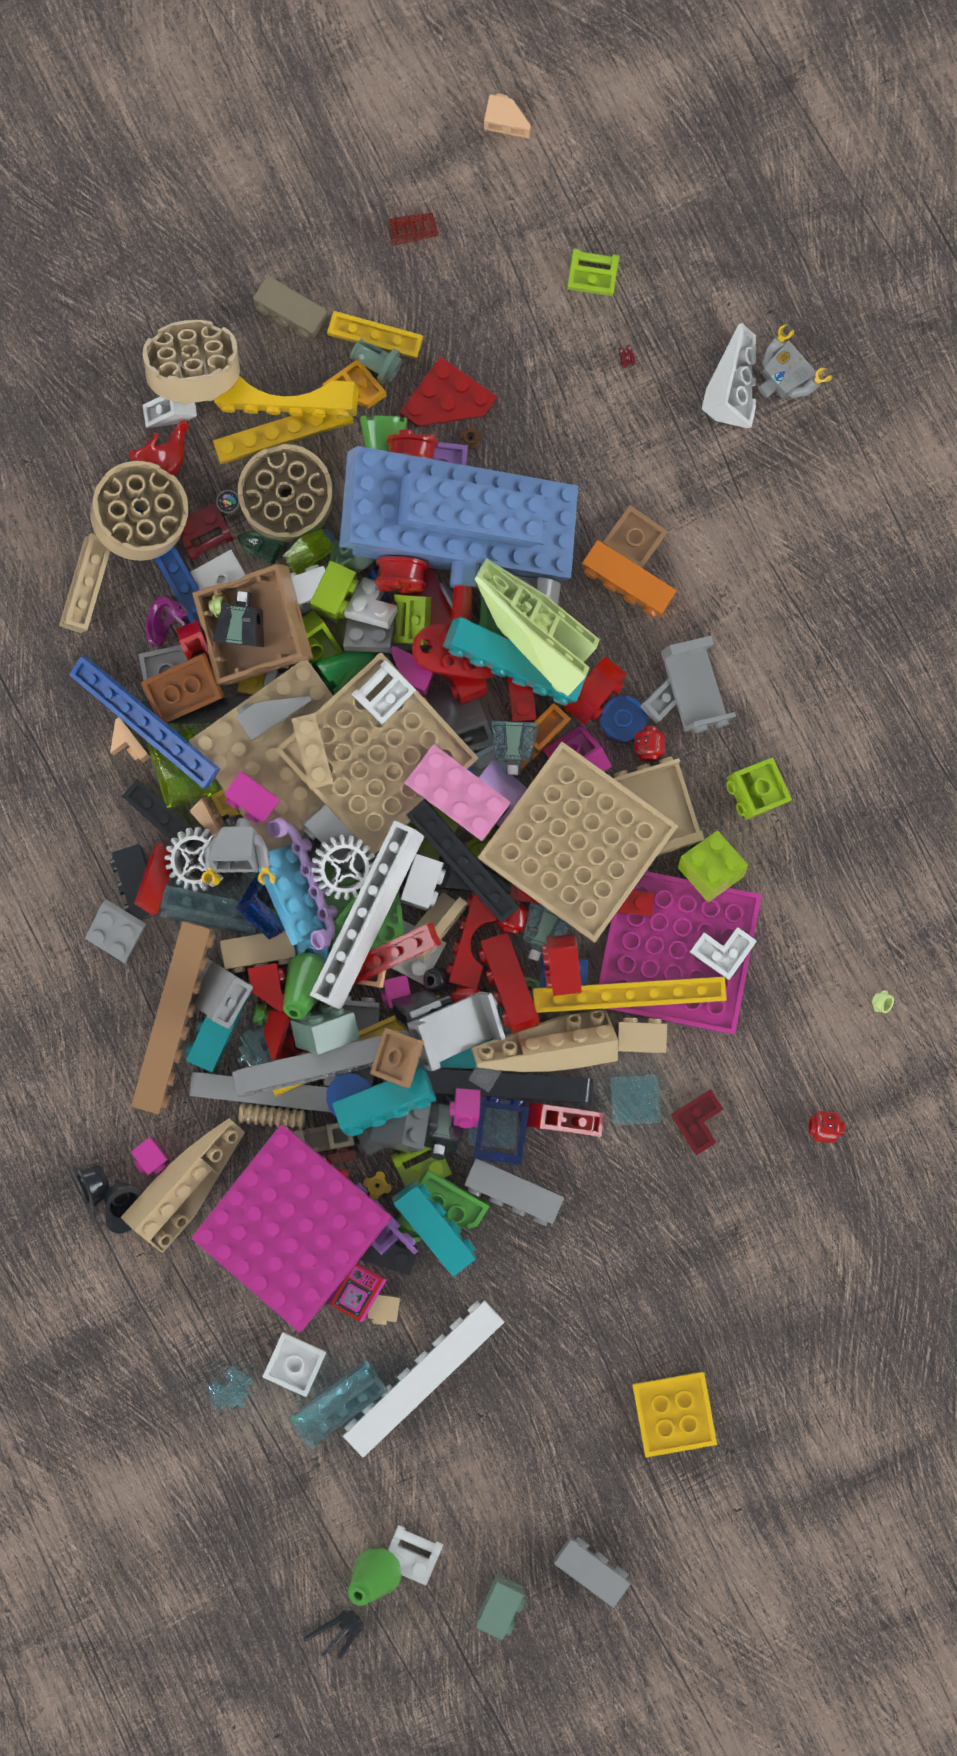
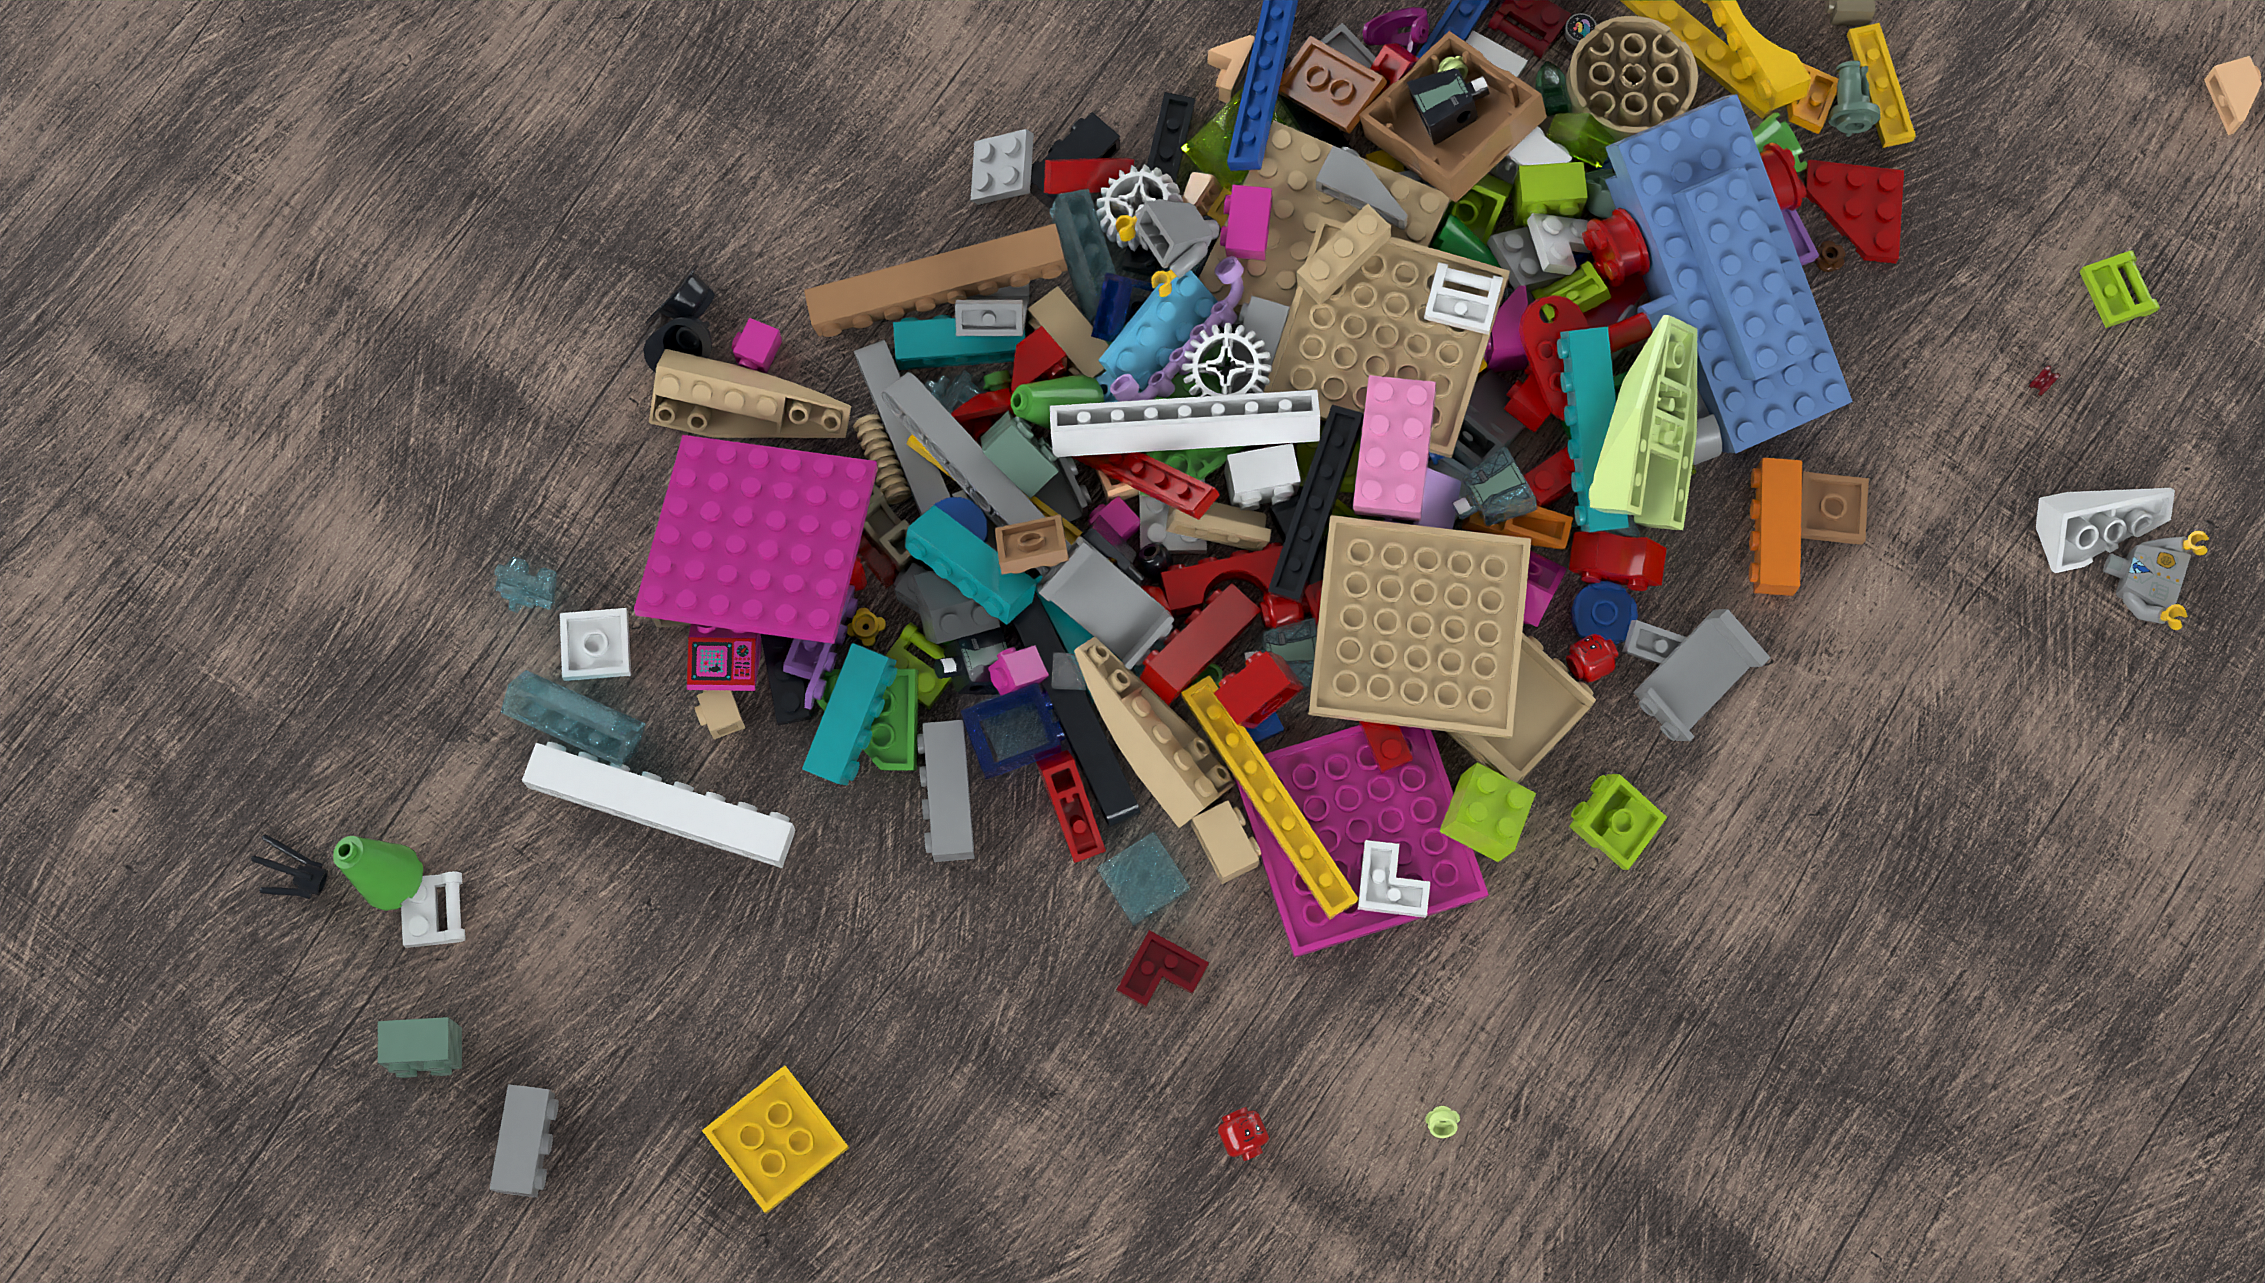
camera: 60 degrees right, 10 degrees down
(414, 236) = (2026, 67): clear red slope -> none

